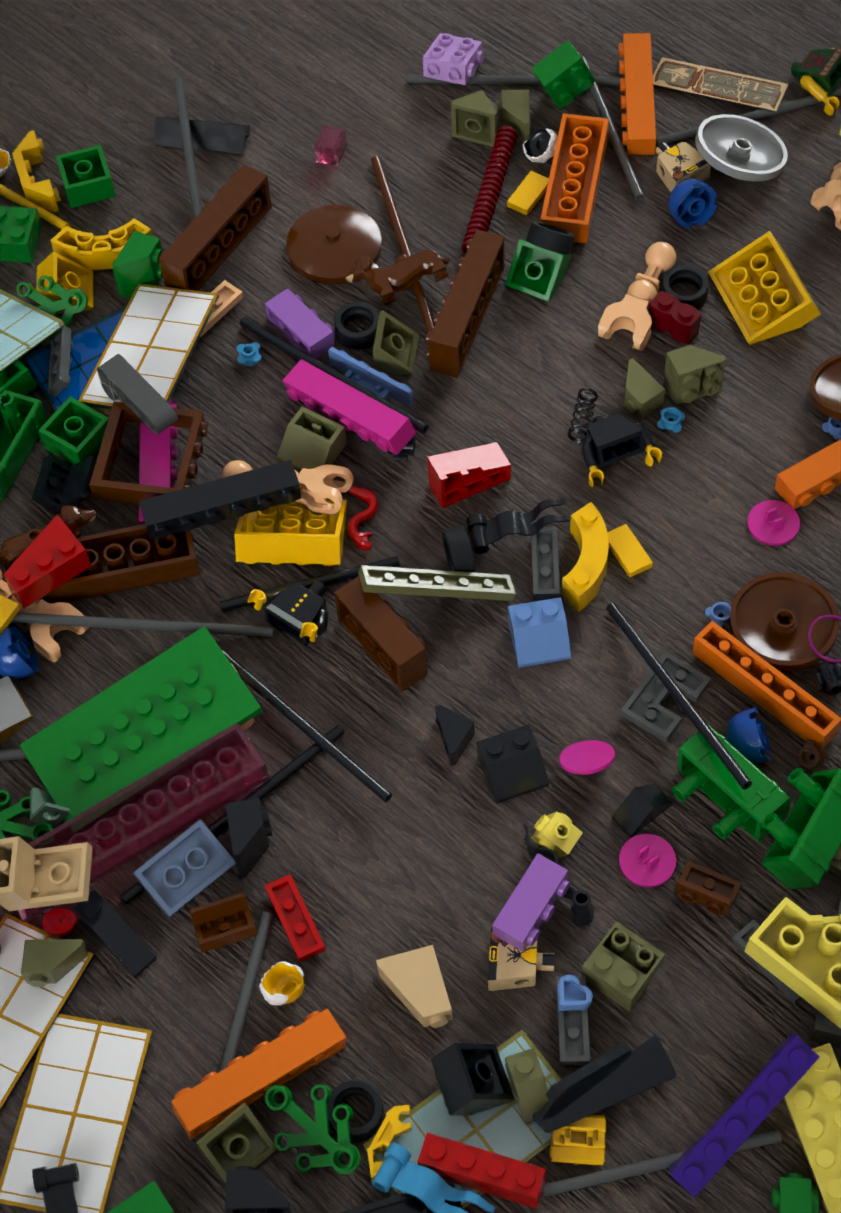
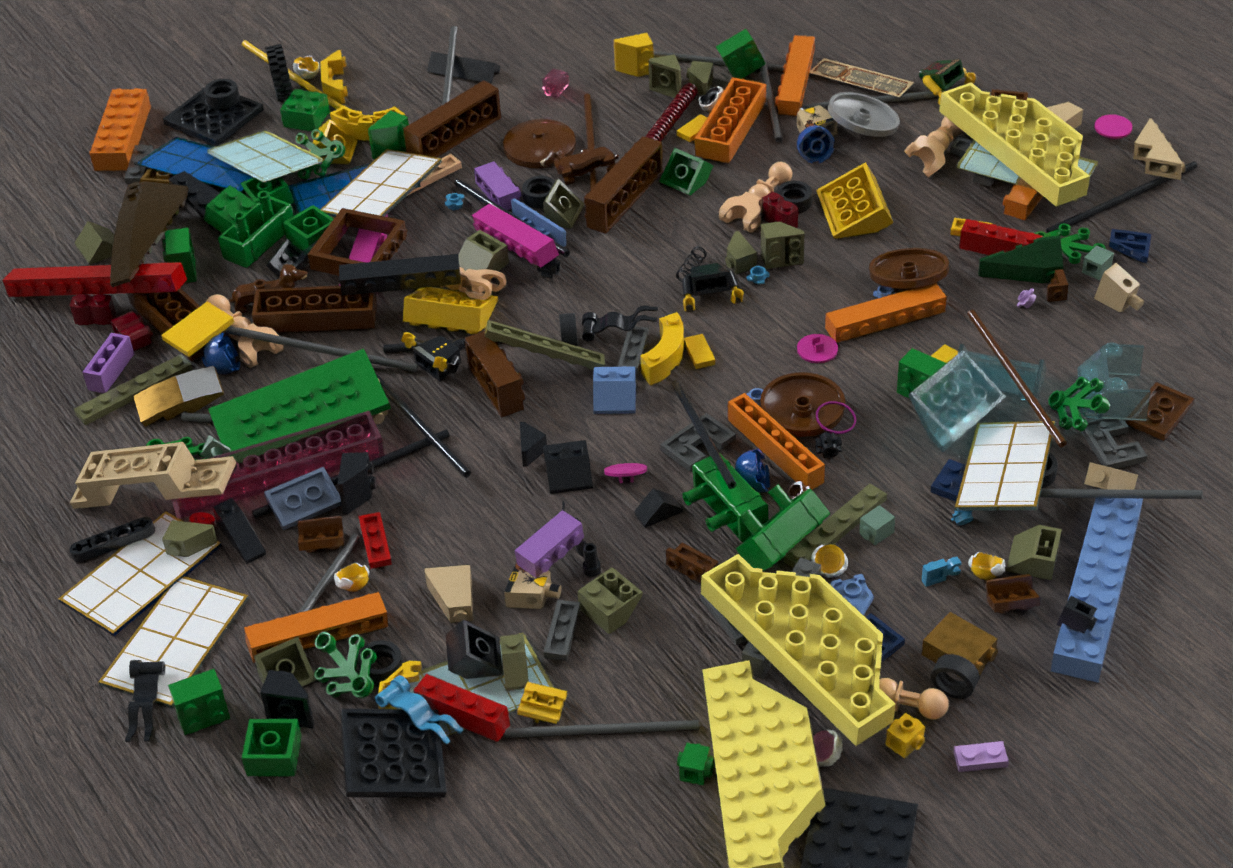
camera: 10 degrees right, 15 degrees down
(46, 563) = (261, 296): red wedge -> none
(60, 361) = (314, 186): dark grey plate -> none
(85, 176) = (369, 81): green brick -> none
(124, 382) = (354, 197): dark grey beam -> none
(360, 538) = (511, 294): red animal -> none
(424, 90) = (632, 54): none -> yellow slope
(452, 59) = (666, 39): lavender brick -> none
(467, 472) = (591, 286): red wedge -> none
(550, 237) = (698, 149): black tyre -> none
(556, 833) = (587, 510): light yellow brick -> none
(572, 994) = (566, 611): medium blue tile -> none
(604, 1083) = (572, 666): black wedge -> none
(647, 860) = (652, 542): dark pink piece -> none
(755, 1103) = (634, 718): dark purple arch -> none

